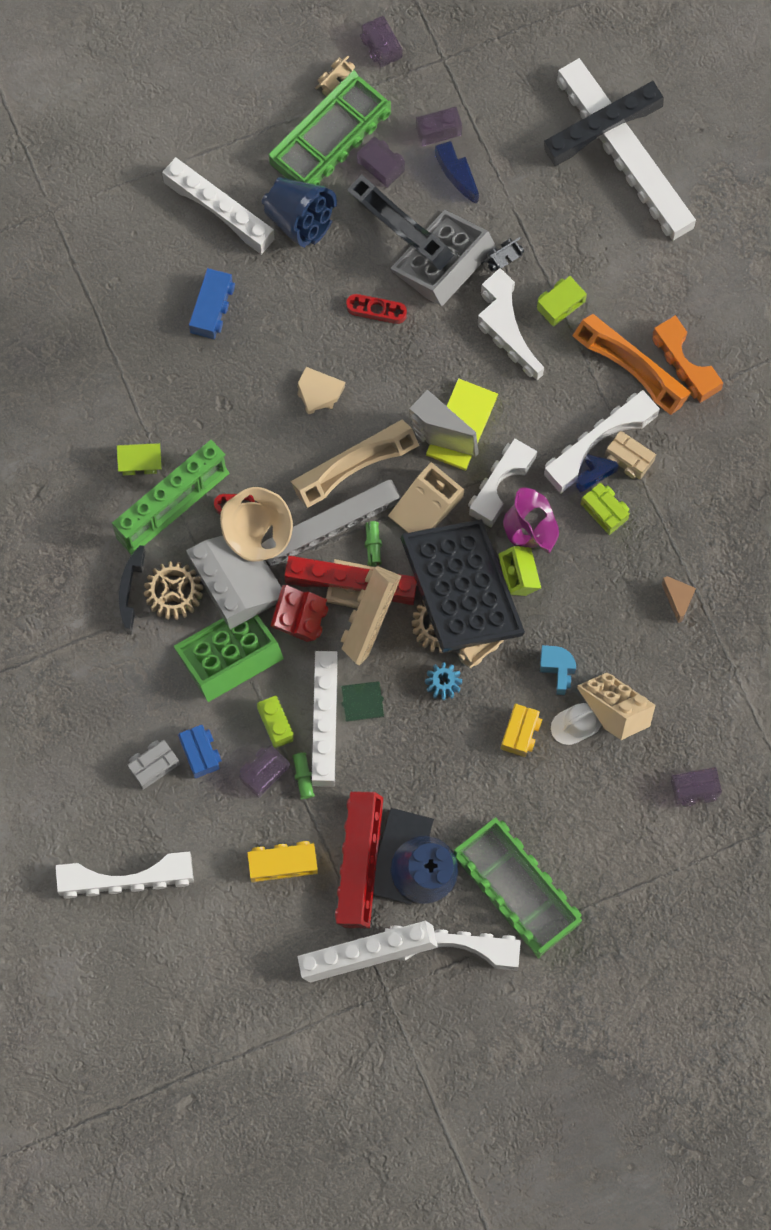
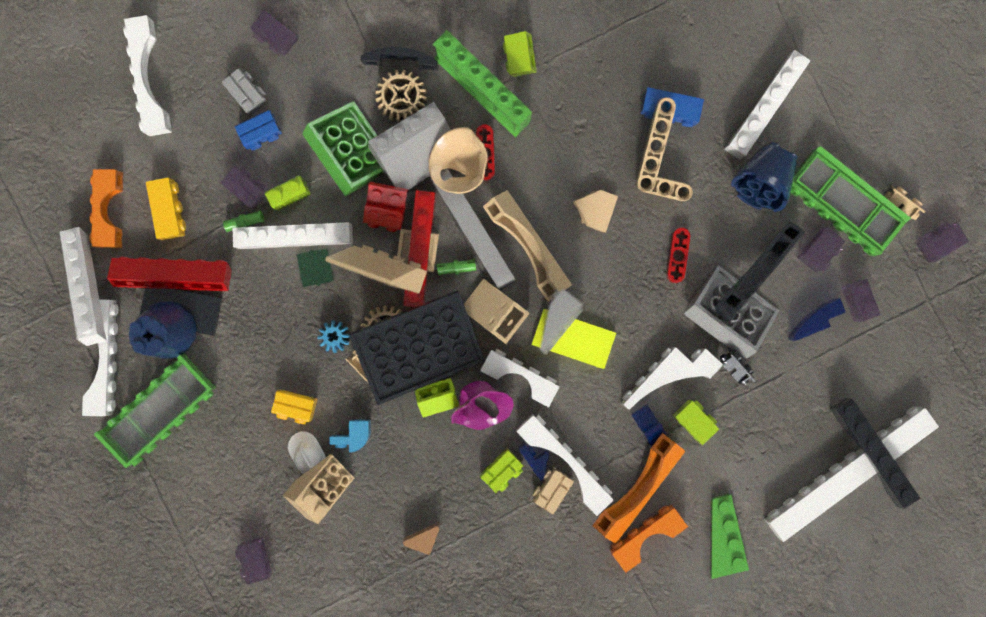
camera: 85 degrees right, 15 degrees up
(89, 727) = (274, 33): none -> clear purple brick
(264, 318) = (657, 155): none -> tan beam
(305, 934) = (105, 186): none -> orange arch
(562, 352) = (648, 424): none -> clear blue slope
(699, 279) = (727, 547): none -> bright green wing

